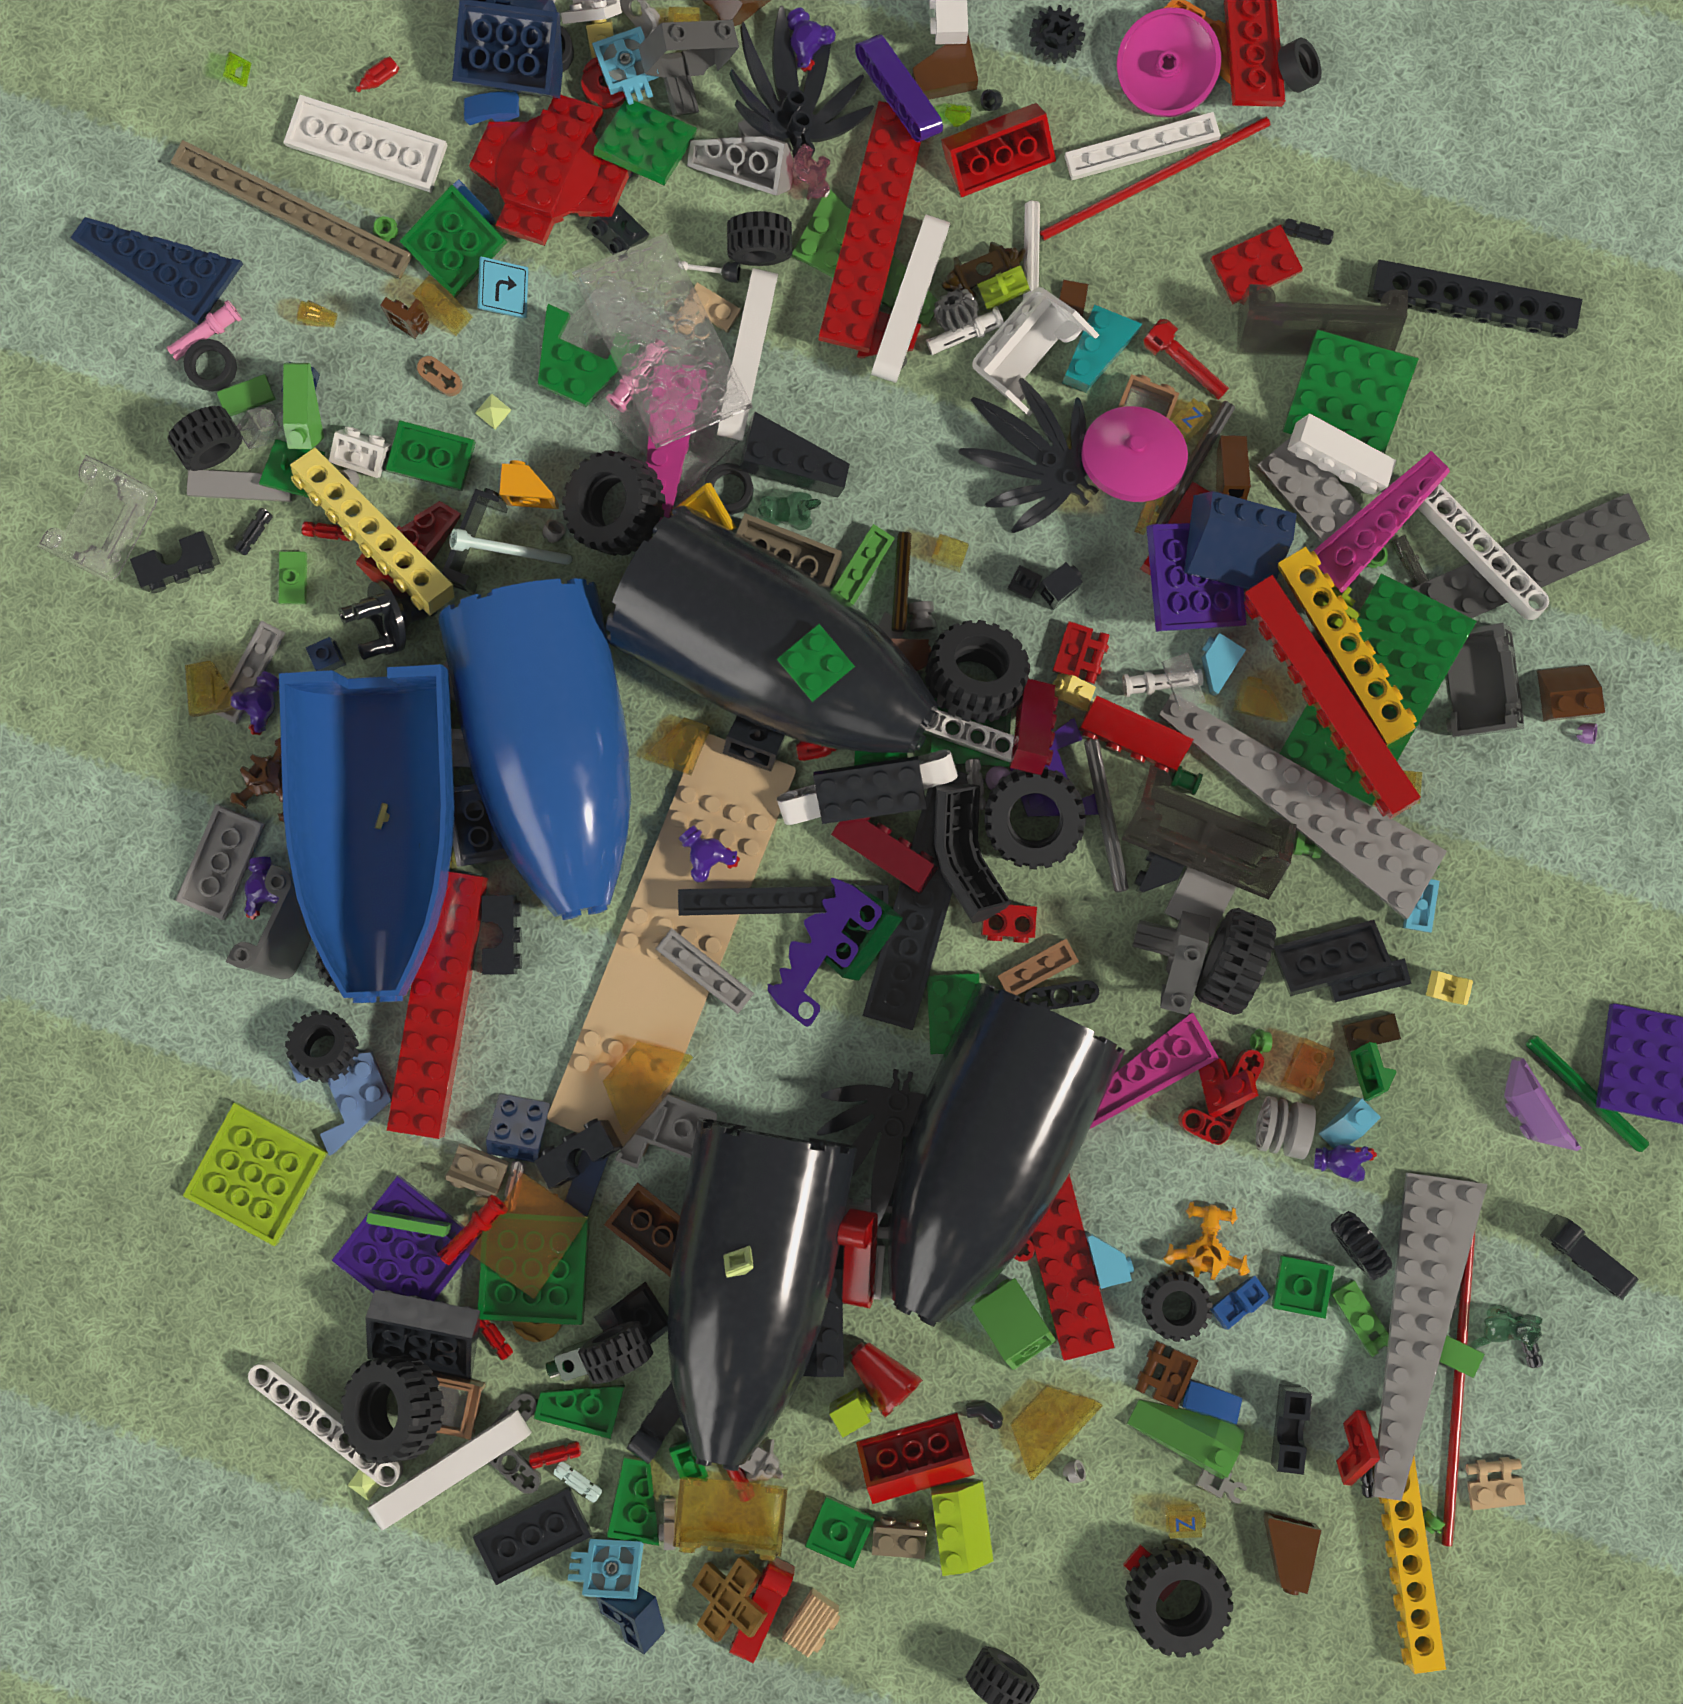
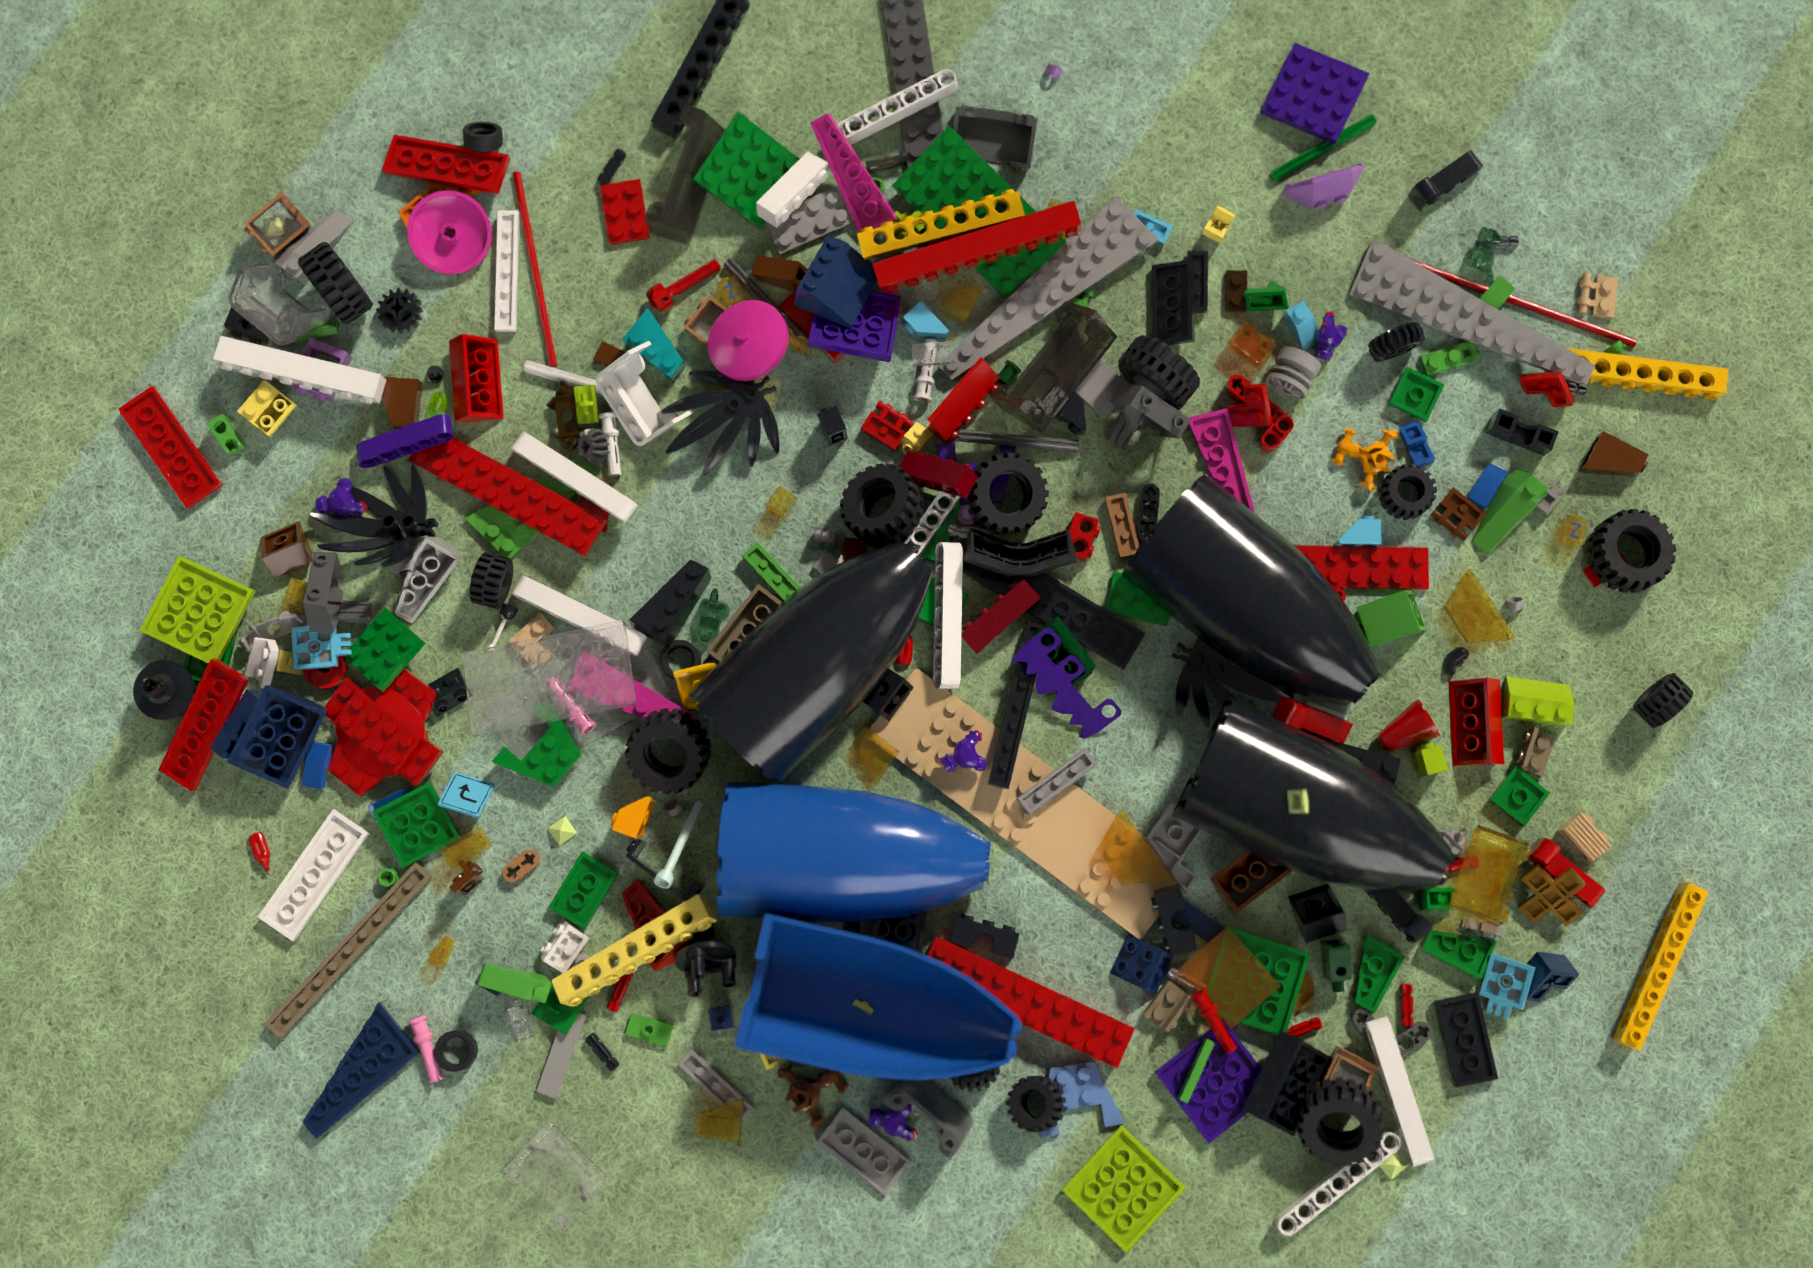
camera: 75 degrees left, 5 degrees down
(197, 556) = (610, 1102): black arch -> none
(205, 438) = (517, 1068): black tyre -> none
(232, 63) = (212, 963): clear neon green slope -> none
(246, 395) = (489, 1028): bright green tile -> none
(257, 701) = (742, 1083): dark purple animal -> none
(577, 1481) = (1432, 992): light aqua axle -> none
(615, 1352) = (1340, 926): black tyre -> none
(811, 172) = (451, 526): clear pink animal -> none
(815, 662) = (849, 617): green plate -> none
(870, 790) = (952, 612): black plate -> none
(901, 581) = (793, 546): dark brown axle -> none
(1024, 582) = (820, 453): black tile -> none
(1261, 1041) = (1222, 373): bright green plate -> none
(1570, 693) = (1019, 75): reddish brown slope -> none

